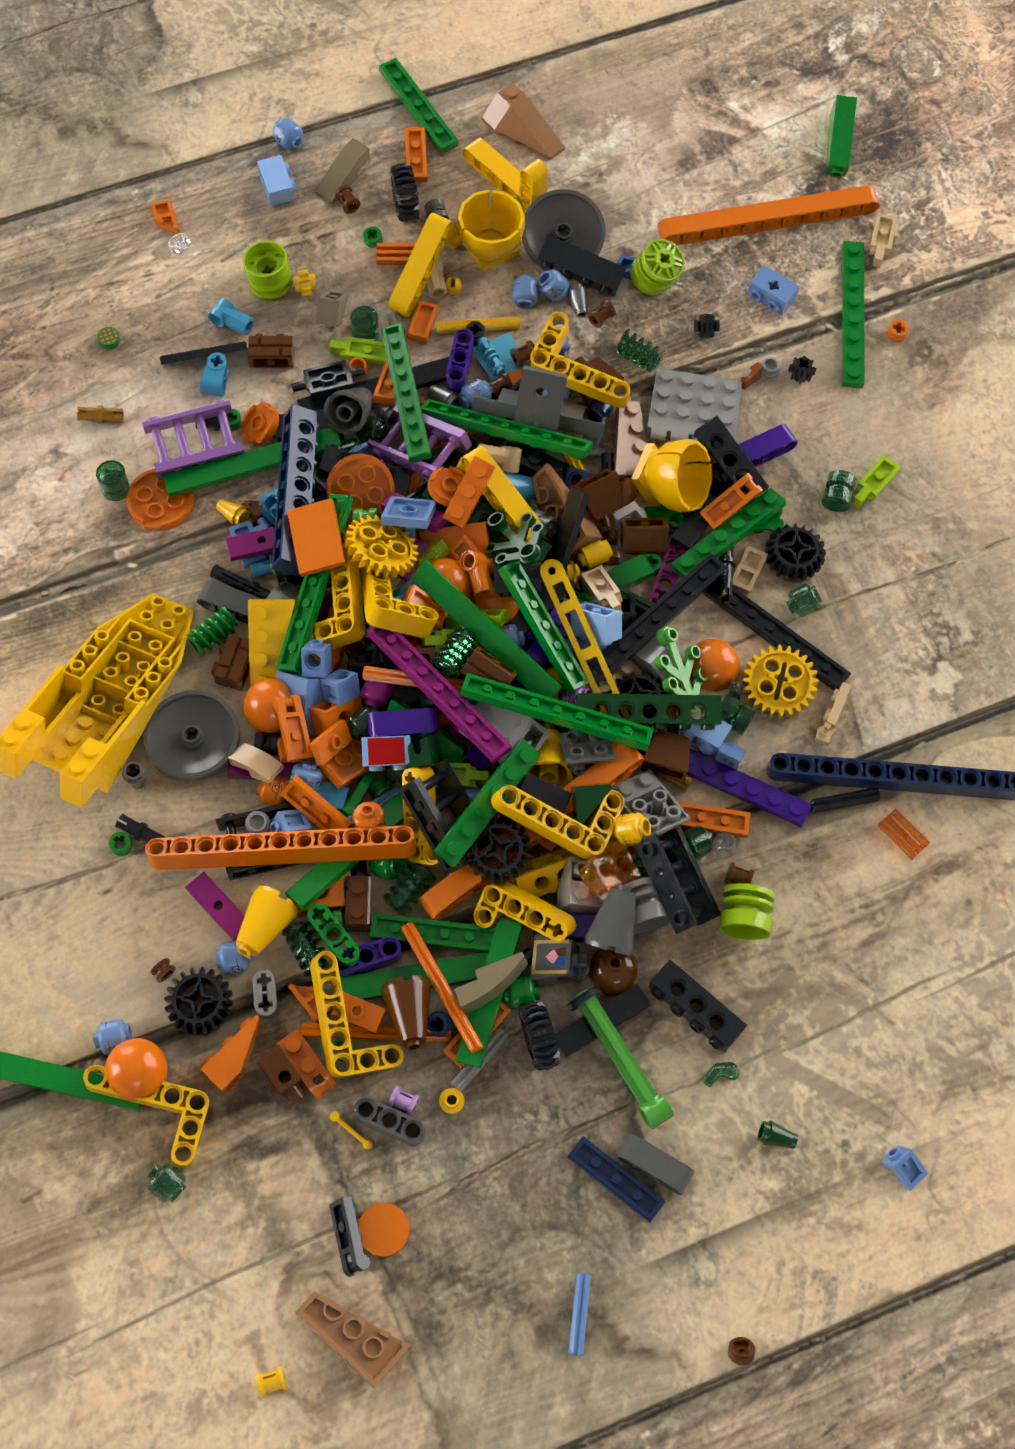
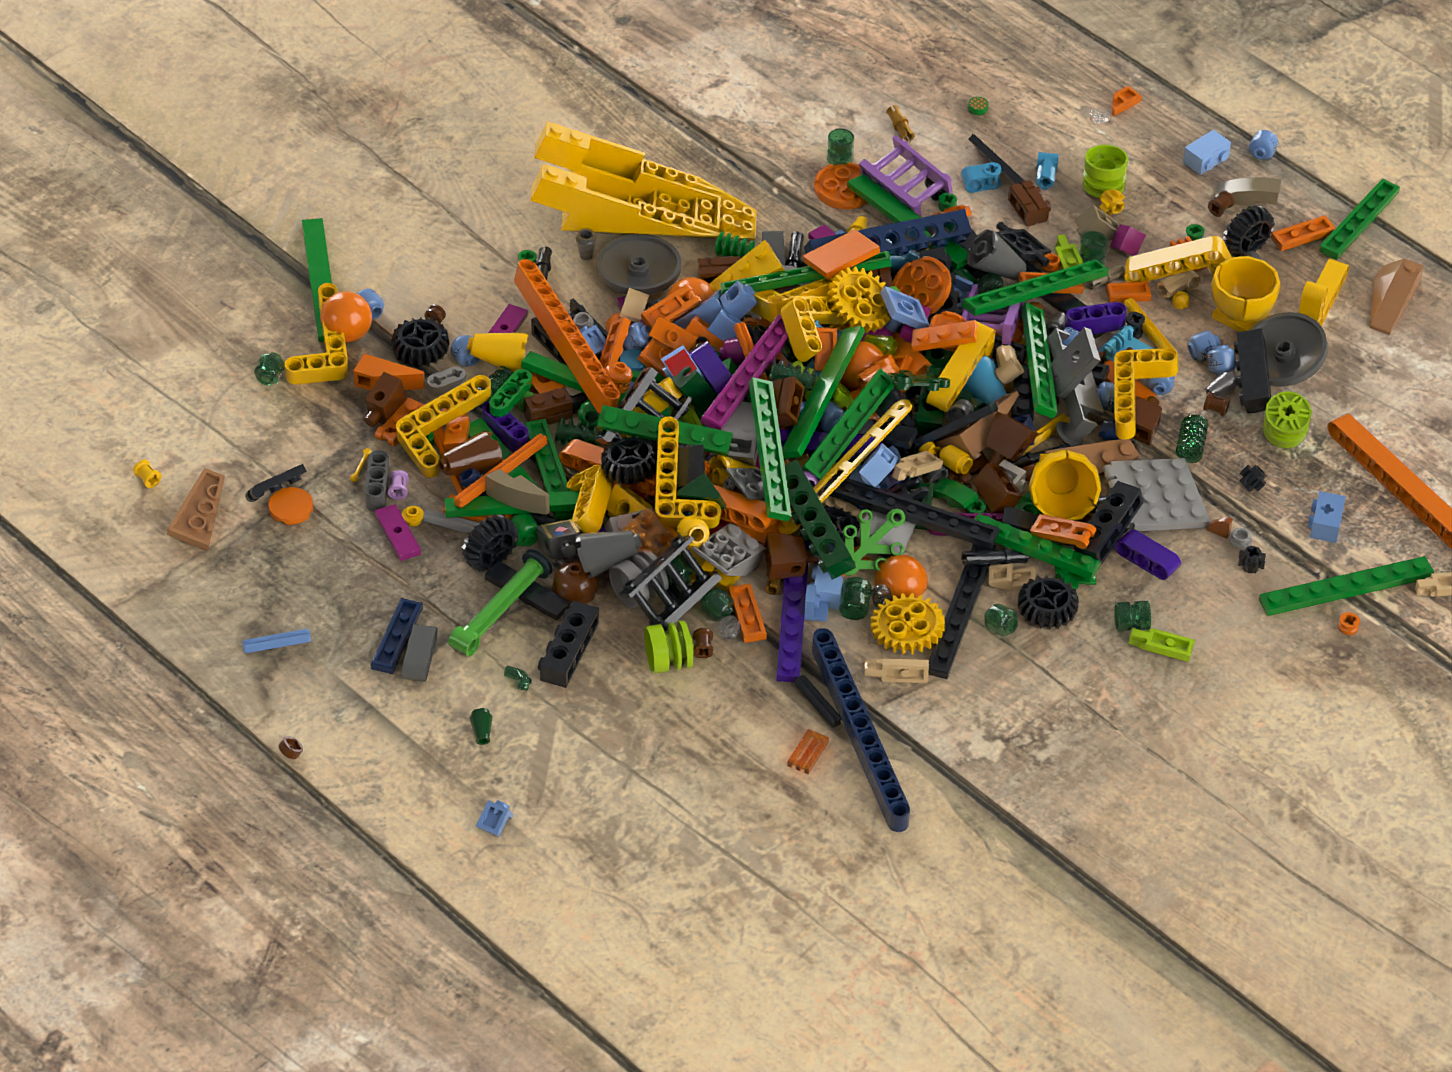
camera: 70 degrees right, 20 degrees down
(360, 292) = (1127, 240): none -> magenta panel
(490, 1126) = (397, 532): none -> magenta tile

